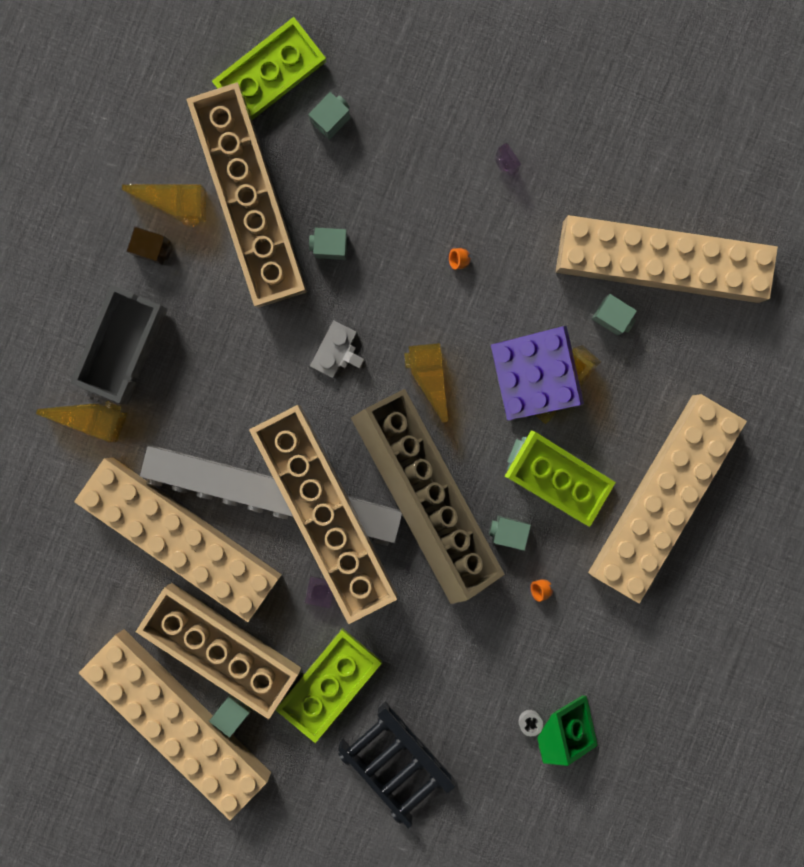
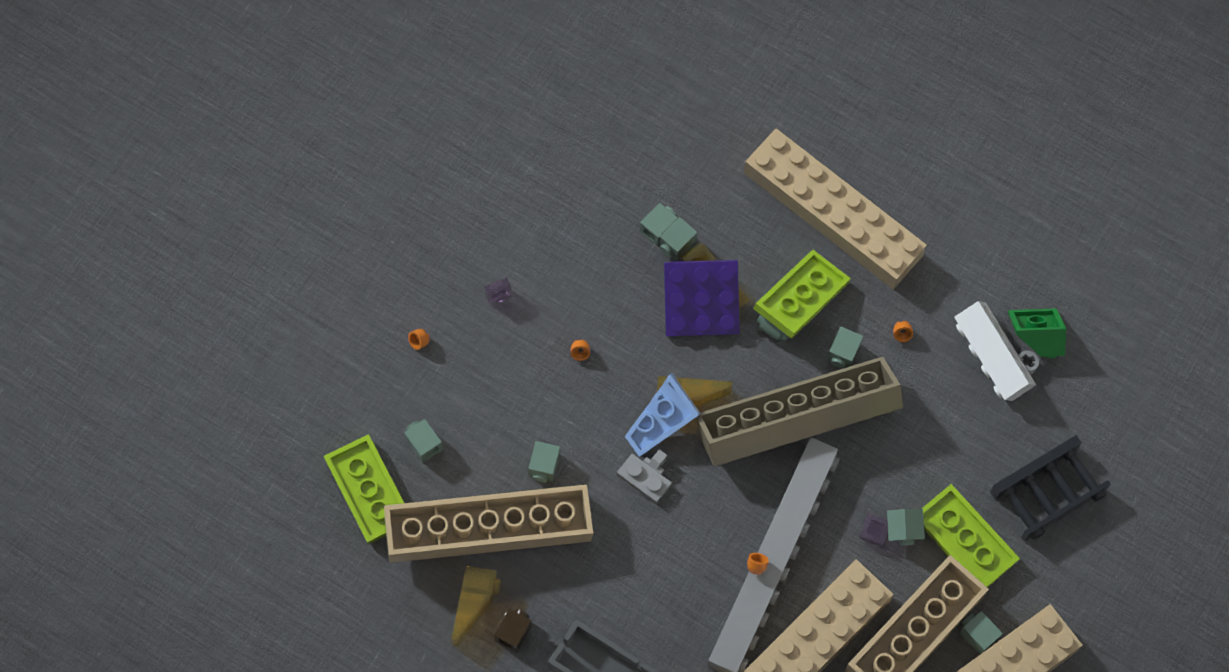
camera: 80 degrees left, 20 degrees down
(253, 479) = (757, 563): none -> orange hinge
(324, 513) = (800, 499): tan brick -> none
(326, 624) = (905, 526): none -> sand green brick
(395, 356) = (662, 417): none -> light blue wing
(441, 89) = (418, 338): none -> orange hinge
(533, 689) = (995, 351): none -> white brick
(600, 337) = (677, 239): none -> sand green brick
(666, 259) = (616, 174): tan brick -> none

